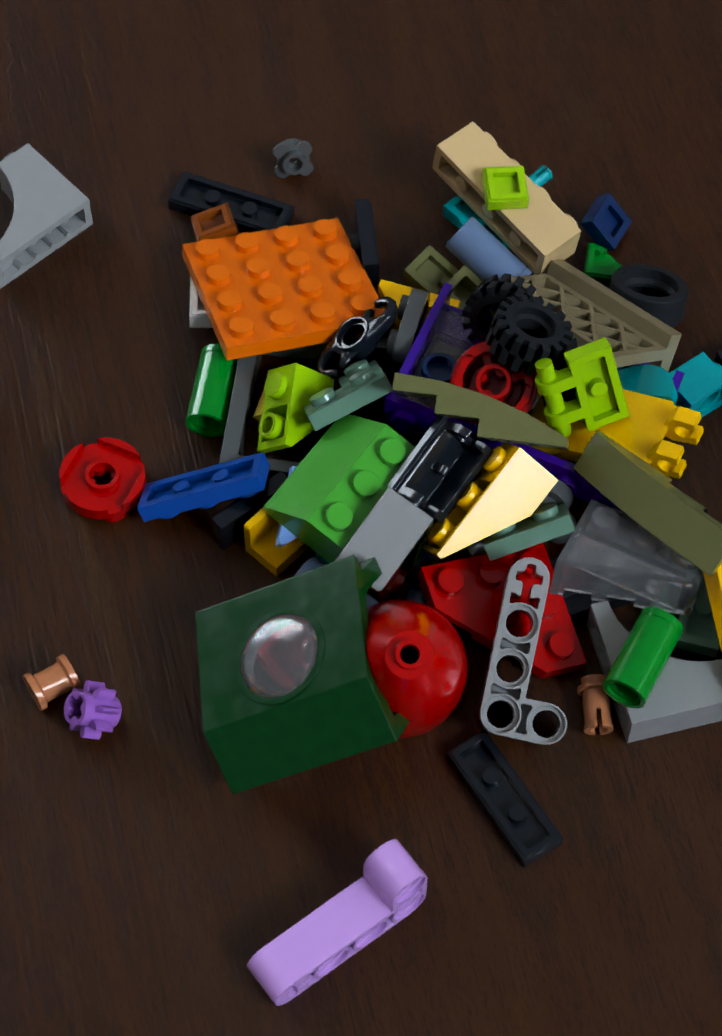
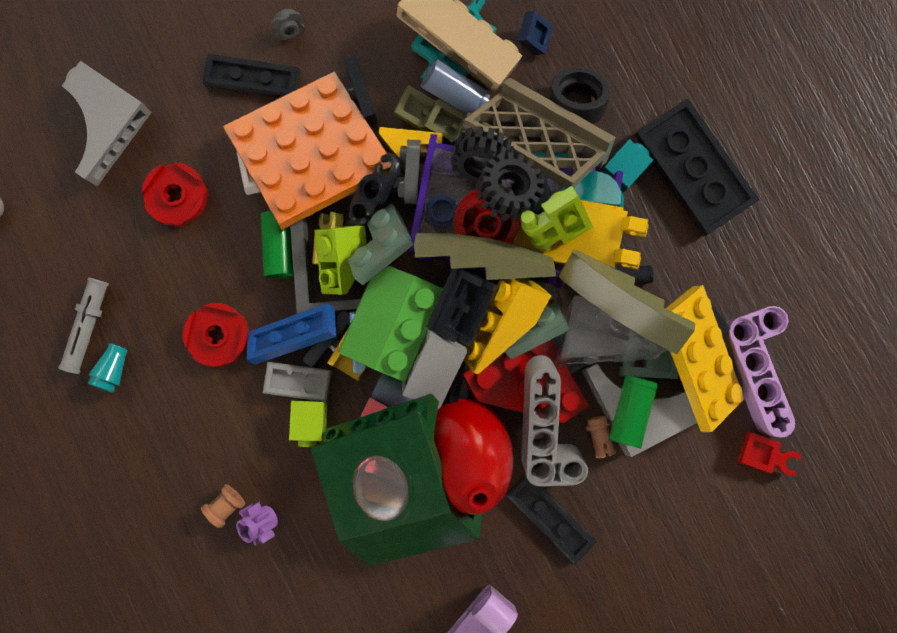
camera: 15 degrees left, 25 degrees up
(100, 332) = (180, 211): none -> red plate
(194, 591) = (308, 422): none -> lime brick
(195, 554) = (297, 381): none -> light grey plate
(214, 223) = (243, 99): dark orange slope -> none
(505, 188) = (458, 33): lime tile -> none
(600, 264) = (537, 70): green tile -> none

